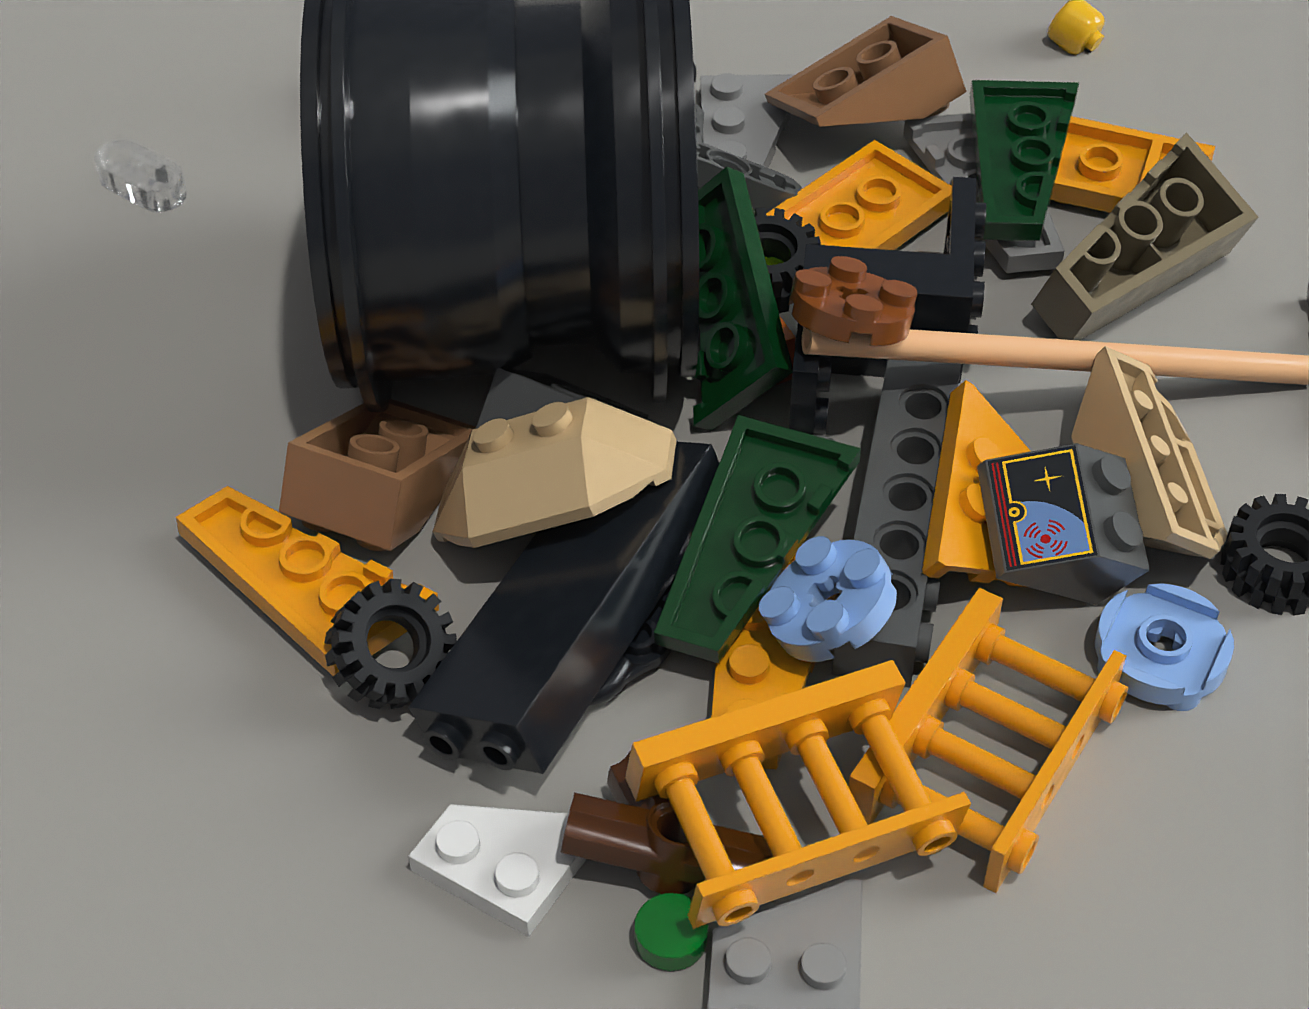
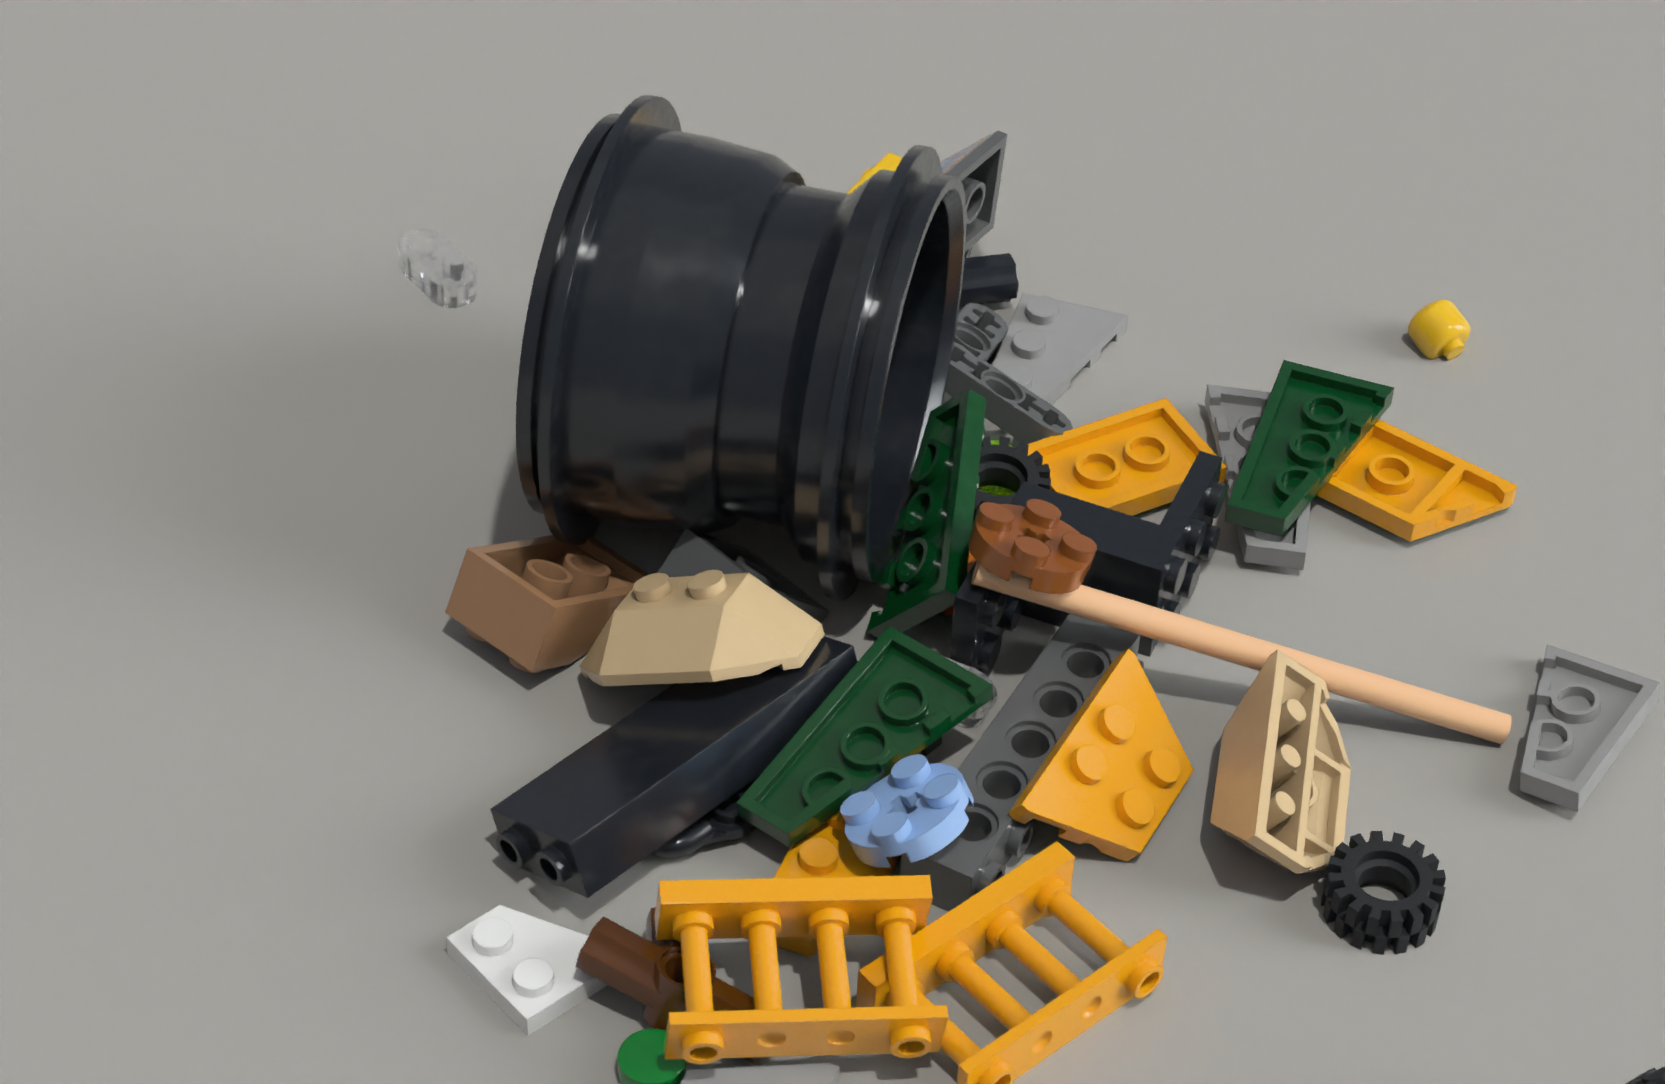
camera: 15 degrees right, 5 degrees down
(284, 571) = (445, 682): light orange wing -> none
(351, 650) = (494, 714): black tyre -> none
(877, 77) = (1193, 336): medium nougat slope -> none
(1063, 521) = (1163, 802): slope -> none
(1151, 240) = (1385, 566): dark tan wedge -> none
(1161, 676) = (1215, 972): light blue plate -> none

